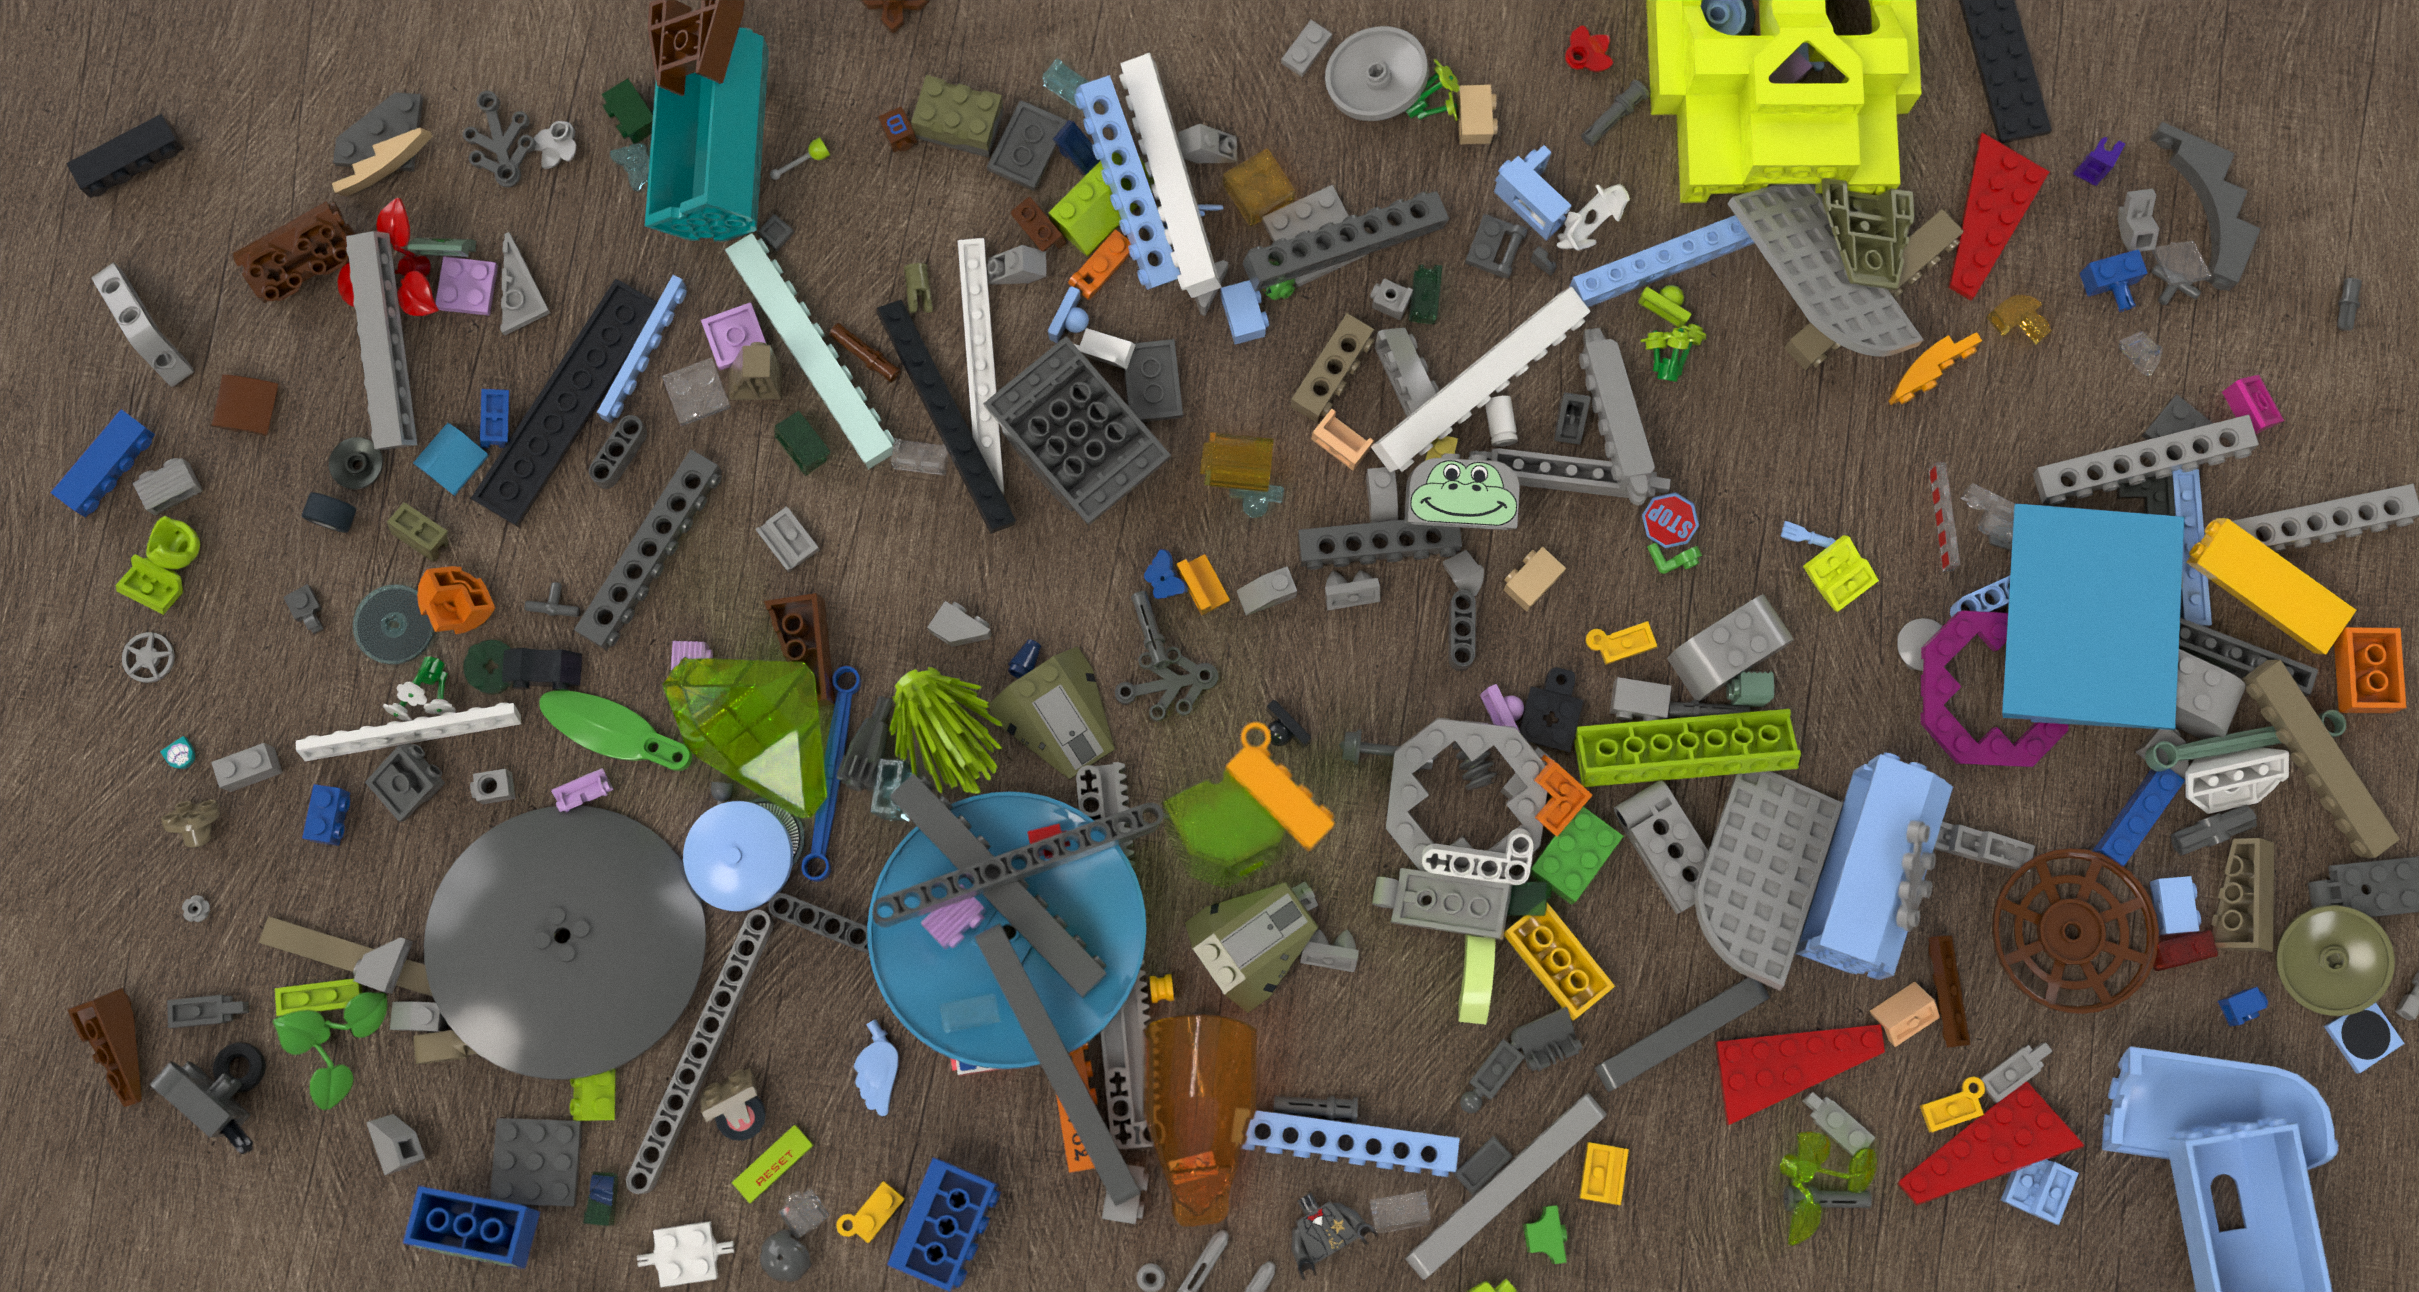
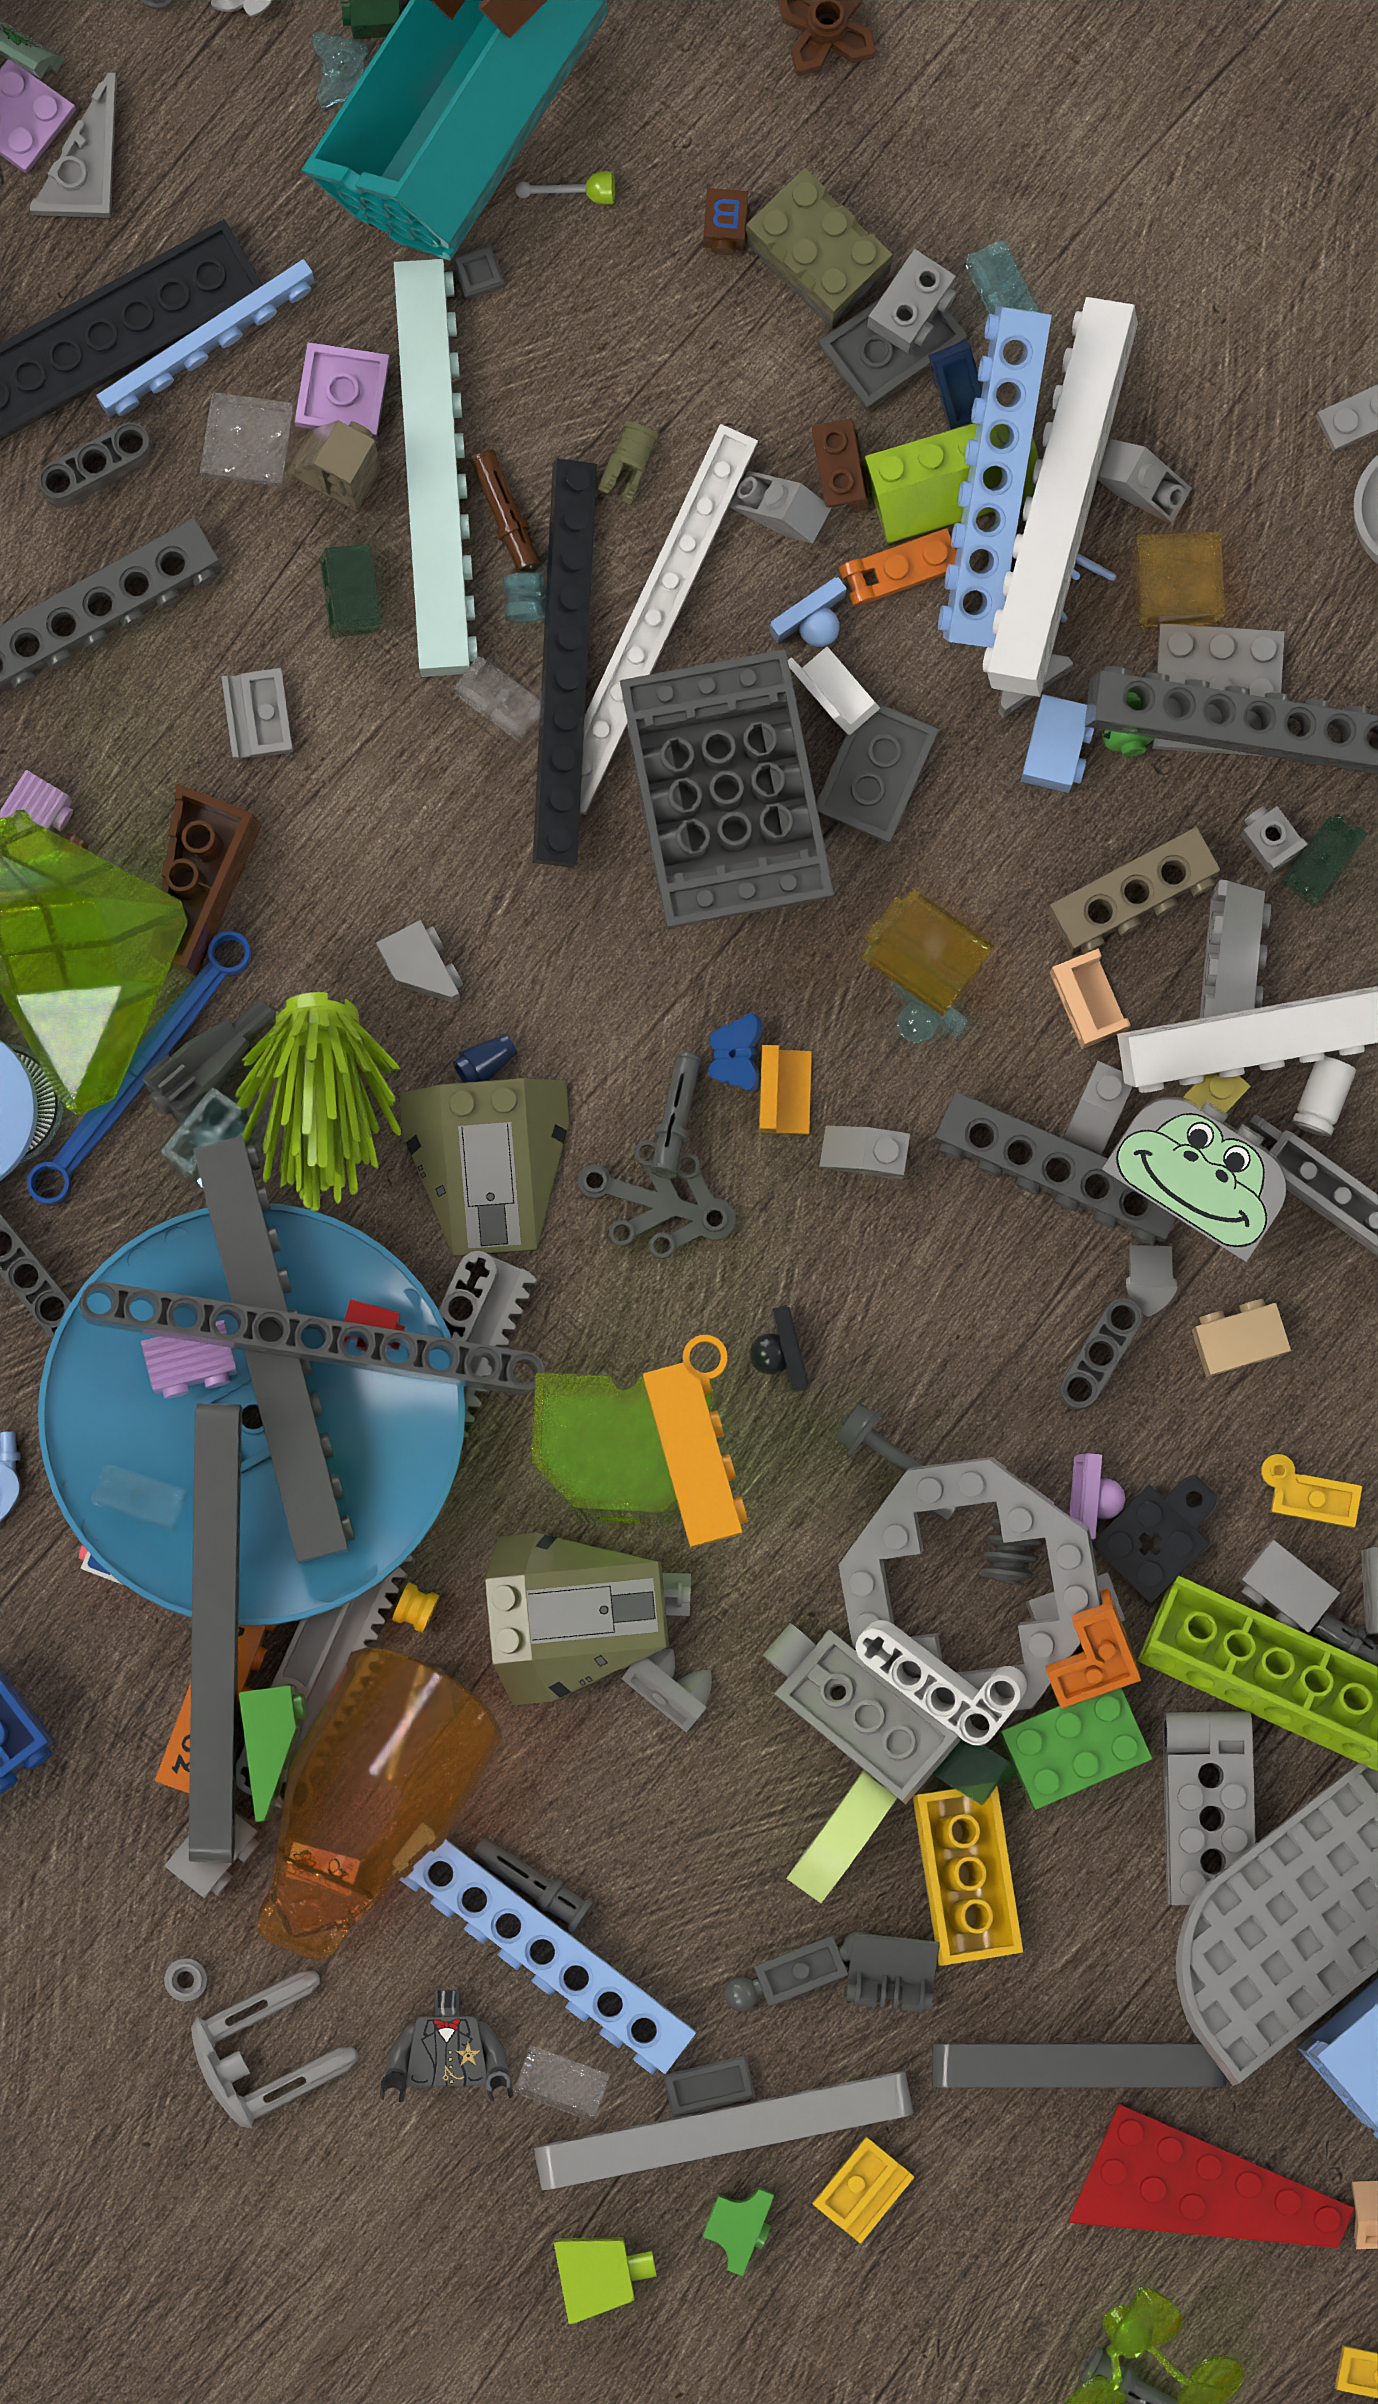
camera: 30 degrees right, 5 degrees up
(901, 393) = (524, 597): none -> clear light blue wheel
(1026, 116) = (912, 302): none -> light grey brick
(1121, 1104) = (270, 1733): none -> bright green slope
(1359, 592) = (964, 1212): light grey tile -> none
(1838, 1124) = (1218, 2306): light grey hinge -> none

